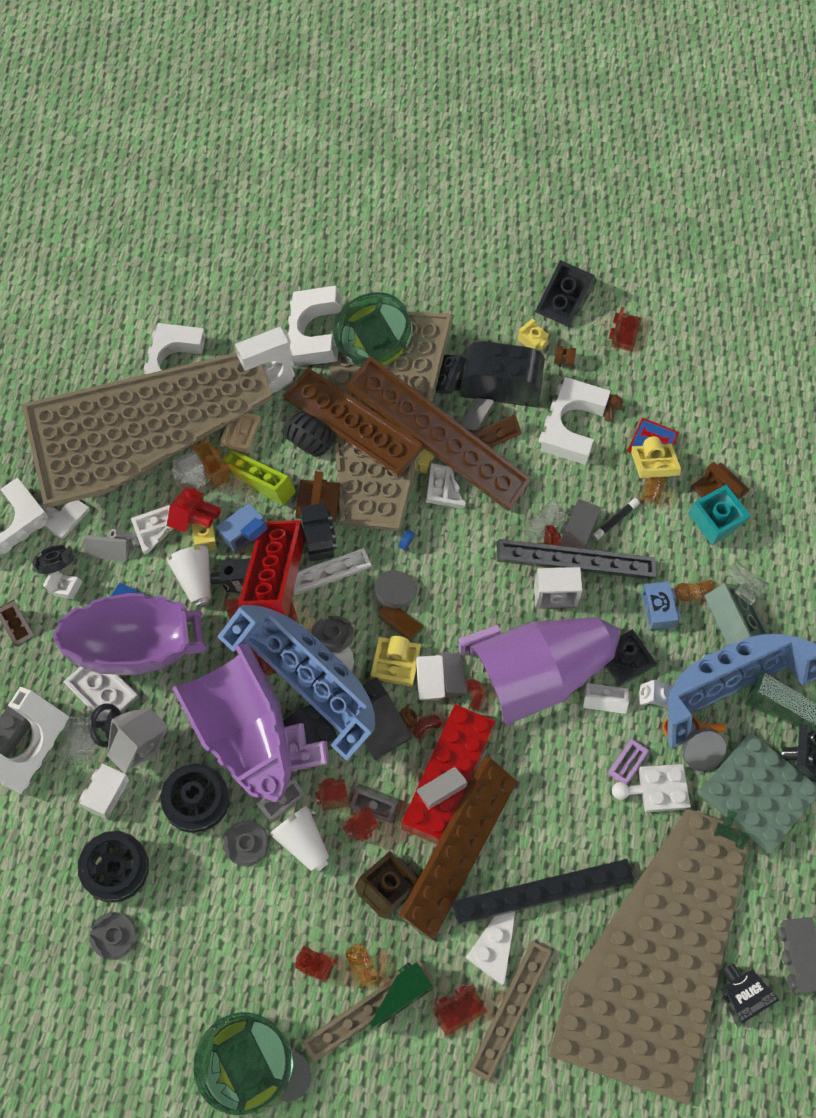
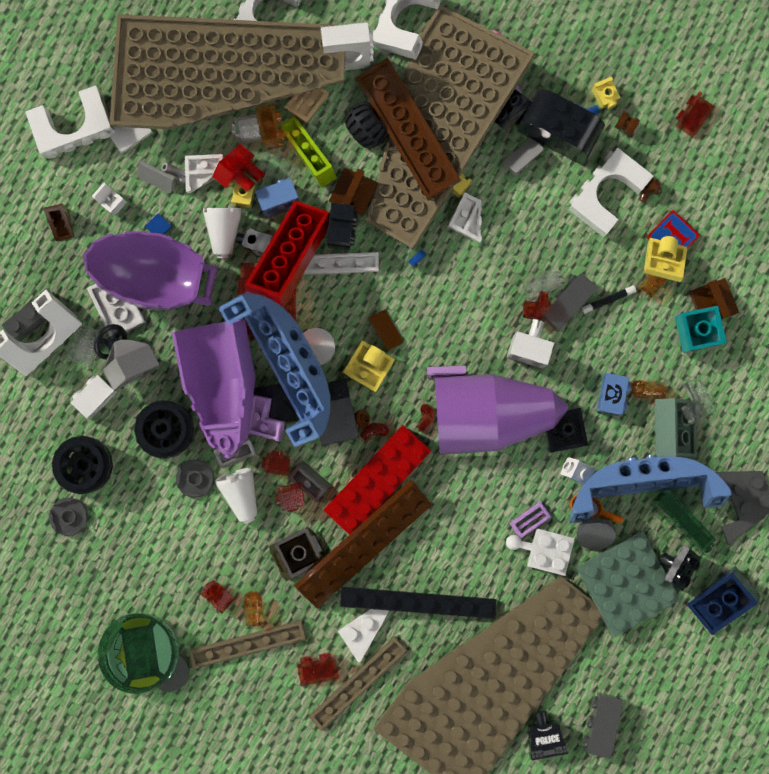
camera: 15 degrees right, 20 degrees up
(53, 559) = (107, 173): black tile -> none
(254, 529) = (285, 208): blue tile -> none
(334, 633) = (324, 323): dark grey tile -> none
(373, 327) = (457, 42): clear green piece -> none
(395, 589) = (391, 300): dark grey tile -> none
(404, 991) = (279, 643): dark green slope -> none
(430, 678) = (392, 391): white slope -> none
(438, 433) = (478, 168): reddish brown plate -> none
(442, 788) = (365, 494): light grey slope -> none
(453, 675) = (413, 394): light grey slope -> none
(499, 431) = (529, 182): reddish brown tile -> none
(566, 293) = (653, 58): black slope -> none
(566, 557) = (554, 331): black plate -> none
(606, 698) = (534, 458): white slope -> none
(725, 831) = (583, 608): clear green piece -> none

